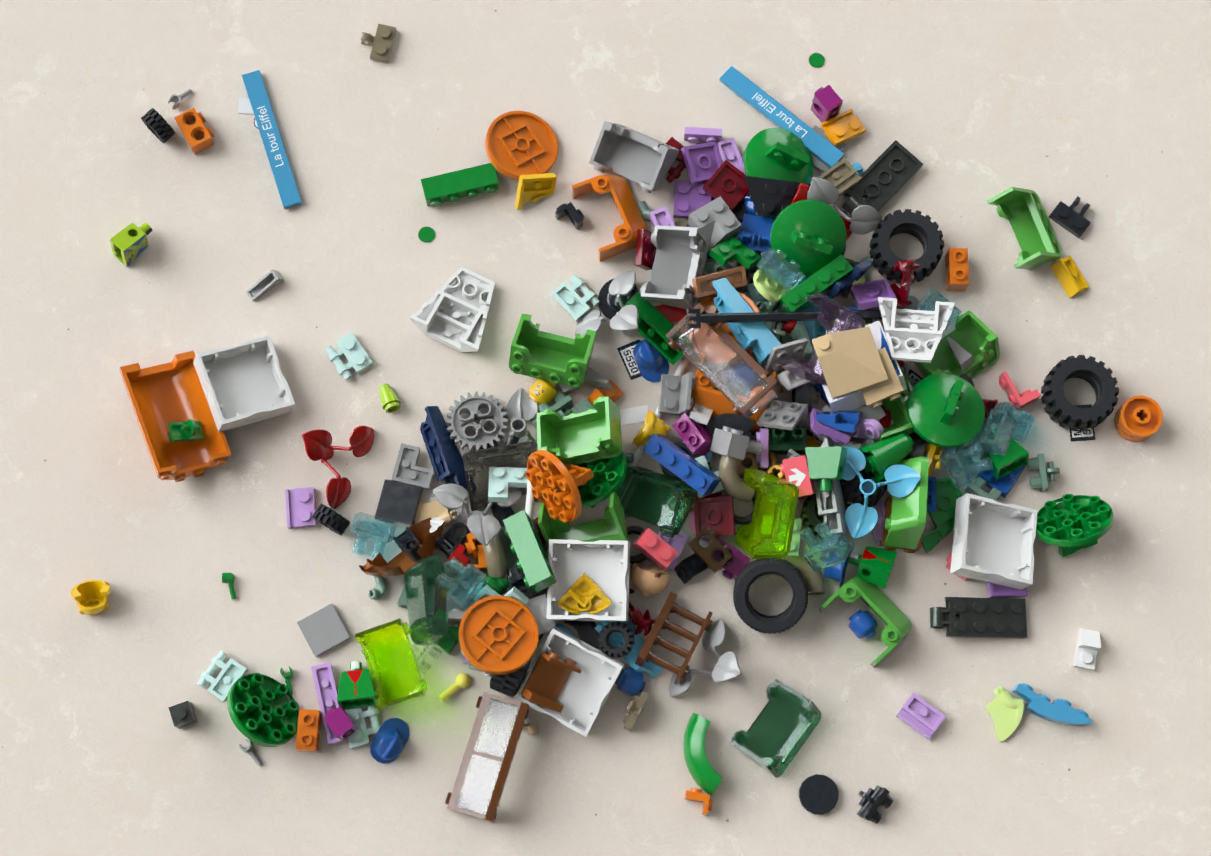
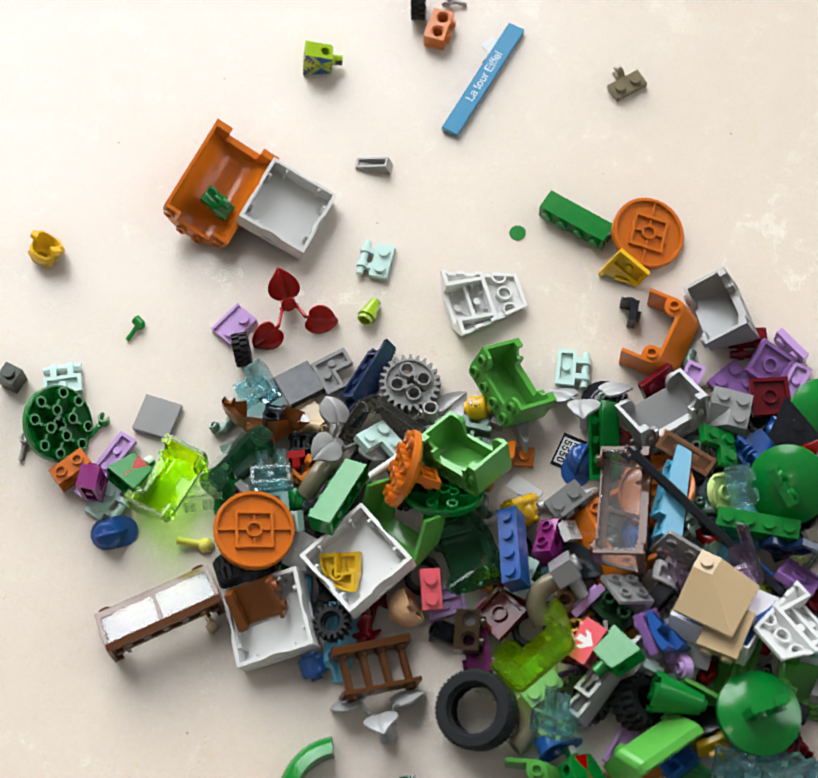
camera: 55 degrees right, 10 degrees down
(636, 709) = (292, 690): dark tan plate -> none
(900, 482) = (661, 722): medium azure plant -> none

